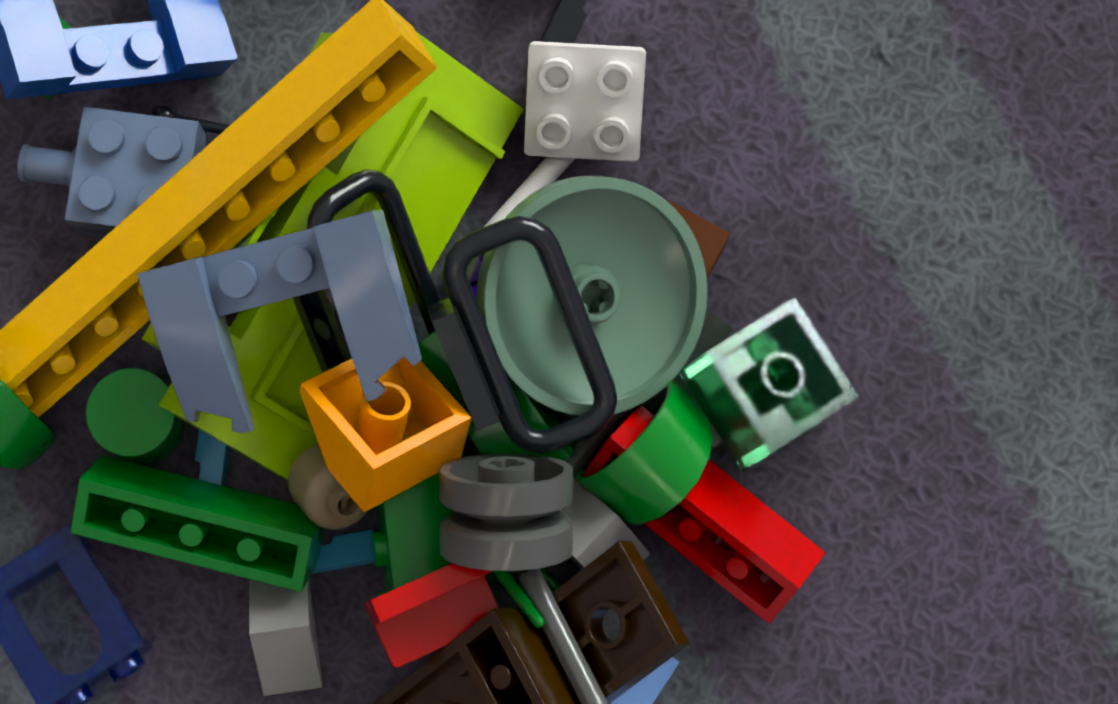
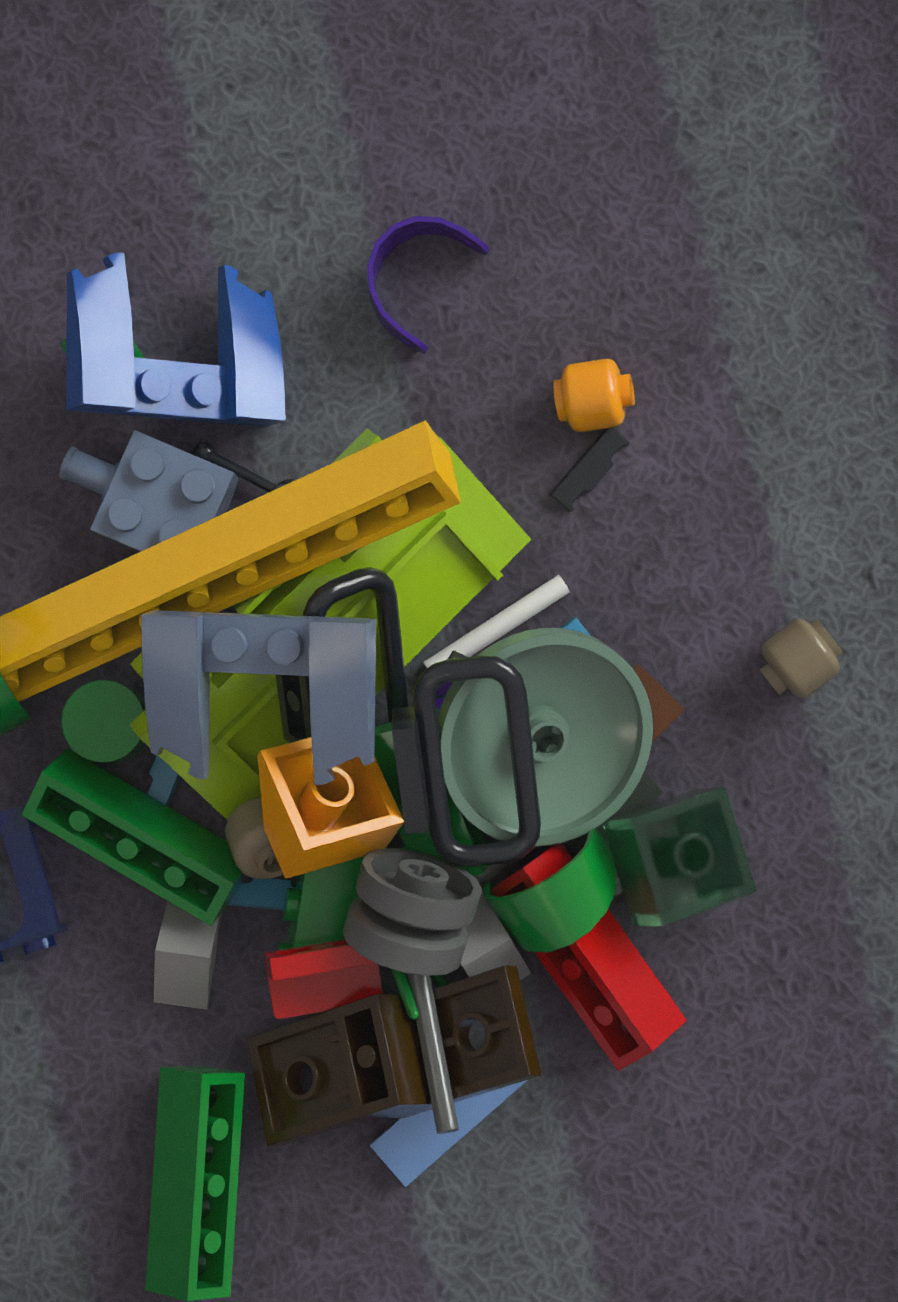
camera: 15 degrees right, 5 degrees up
(584, 101) = (587, 551): white bracket -> none
(834, 151) = (800, 658): none -> dark tan head

